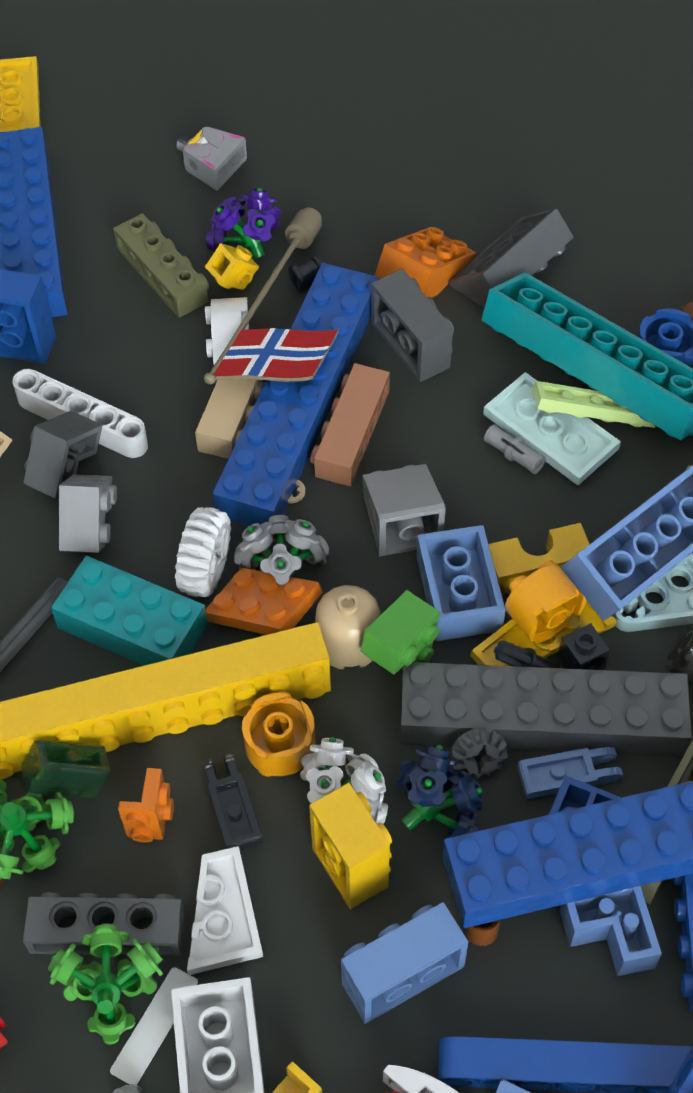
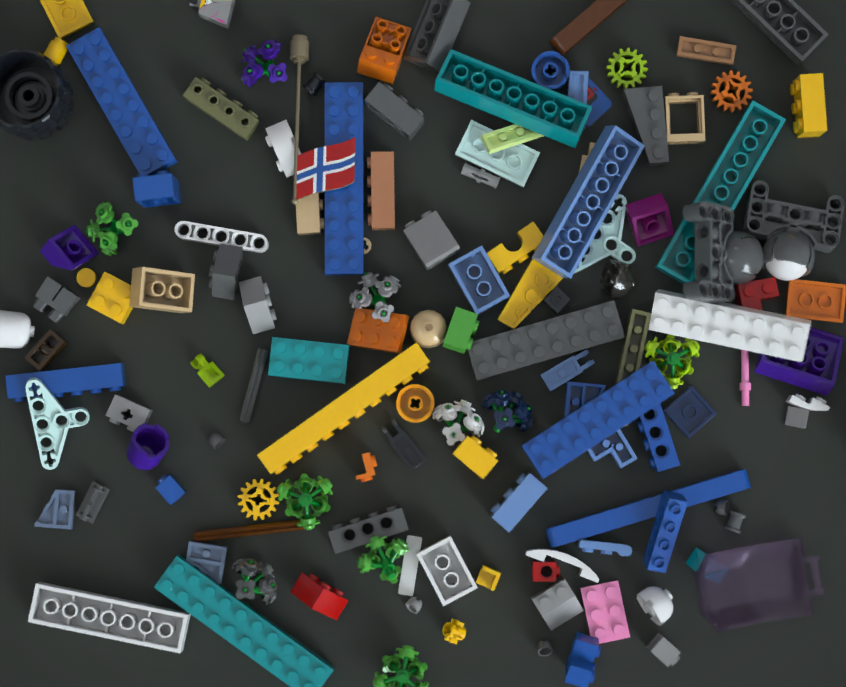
camera: 20 degrees left, 30 degrees up
(65, 768) = (316, 461): clear green brick -> none
(202, 552) = (334, 311): white gear -> none
(224, 915) = (422, 503): white wing -> none
(232, 266) = (268, 99): yellow brick -> none
(471, 743) = (519, 378): dark grey gear -> none
(520, 657) = (529, 317): black axle -> none
(544, 602) = (529, 286): light orange brick -> none

